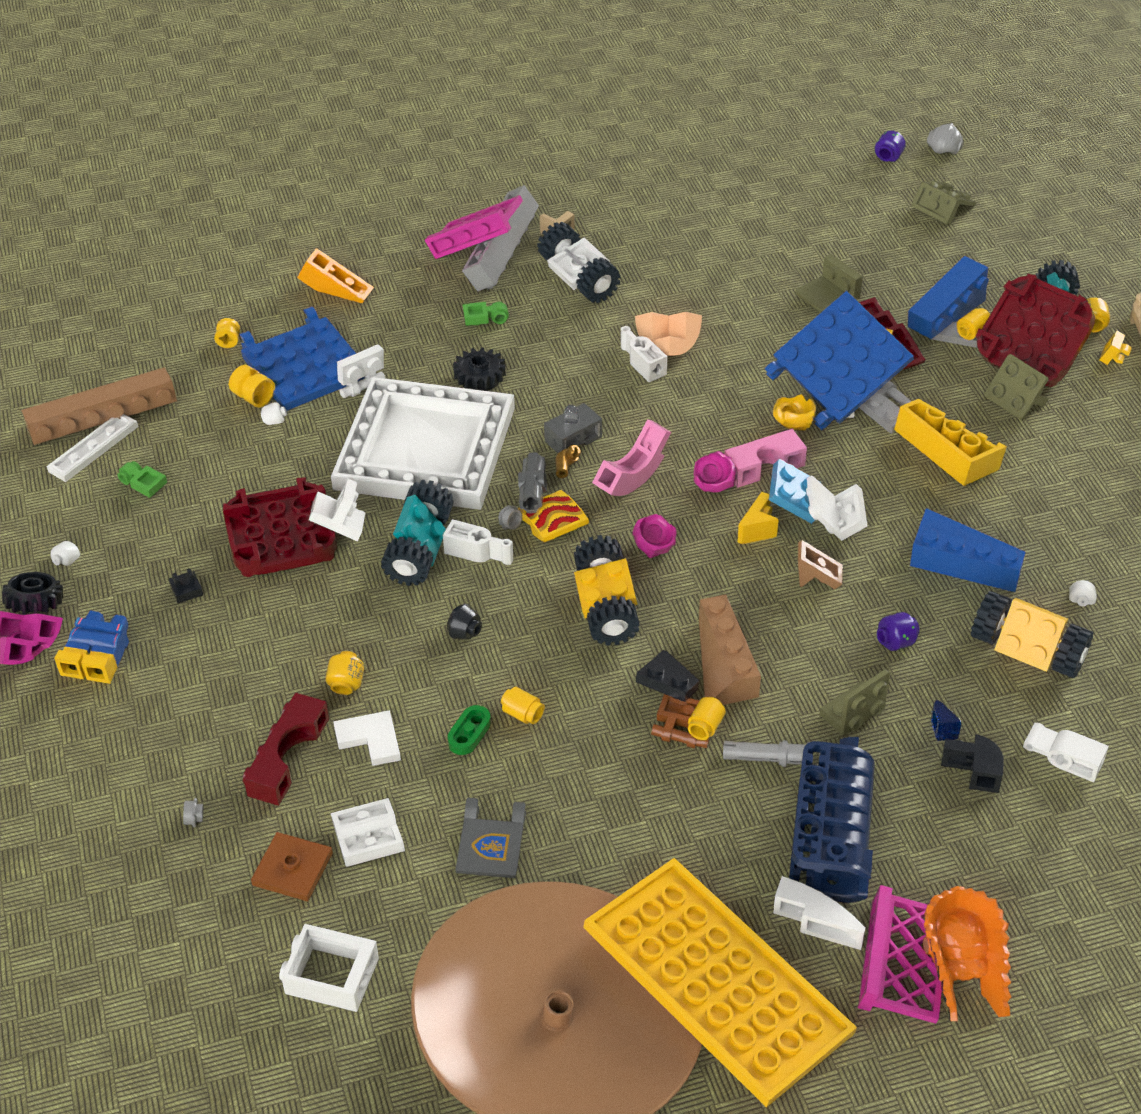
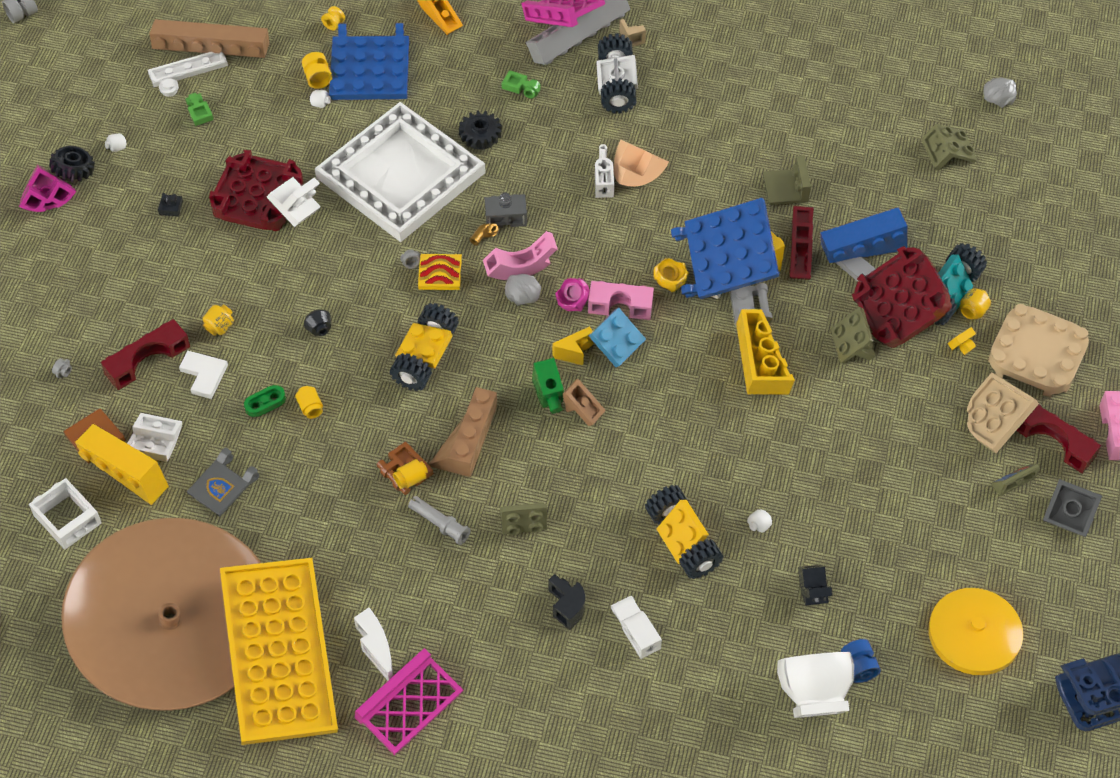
camera: 30 degrees right, 10 degrees up
(86, 473) = (168, 87): none -> white plate
(94, 646) = (83, 222): hips -> none
(358, 366) = (393, 90): white plate -> none
(361, 872) = (123, 463): none -> yellow wedge
(418, 533) = (336, 240): plate -> none
(475, 543) = (370, 266): white piece -> none
(532, 482) = (442, 239): dark grey piece -> none
(654, 492) = (522, 289): none -> light grey hair
(654, 535) = (492, 322): dark pink hair -> none
(668, 677) = (416, 431): black wing -> none
(768, 565) = (548, 385): none -> green torso
(839, 513) = (631, 365): white bracket -> none
(839, 820) = (432, 589): dark blue piece -> none
(890, 146) = (949, 77): dark purple head -> none
(897, 631) = (597, 480): dark purple head -> none
(944, 722) = (569, 562): clear blue slope -> none
(965, 553) = (695, 446): blue wedge -> none
(967, 943) = (441, 714): orange piece -> none
(971, 322) = (865, 265): yellow brick -> none

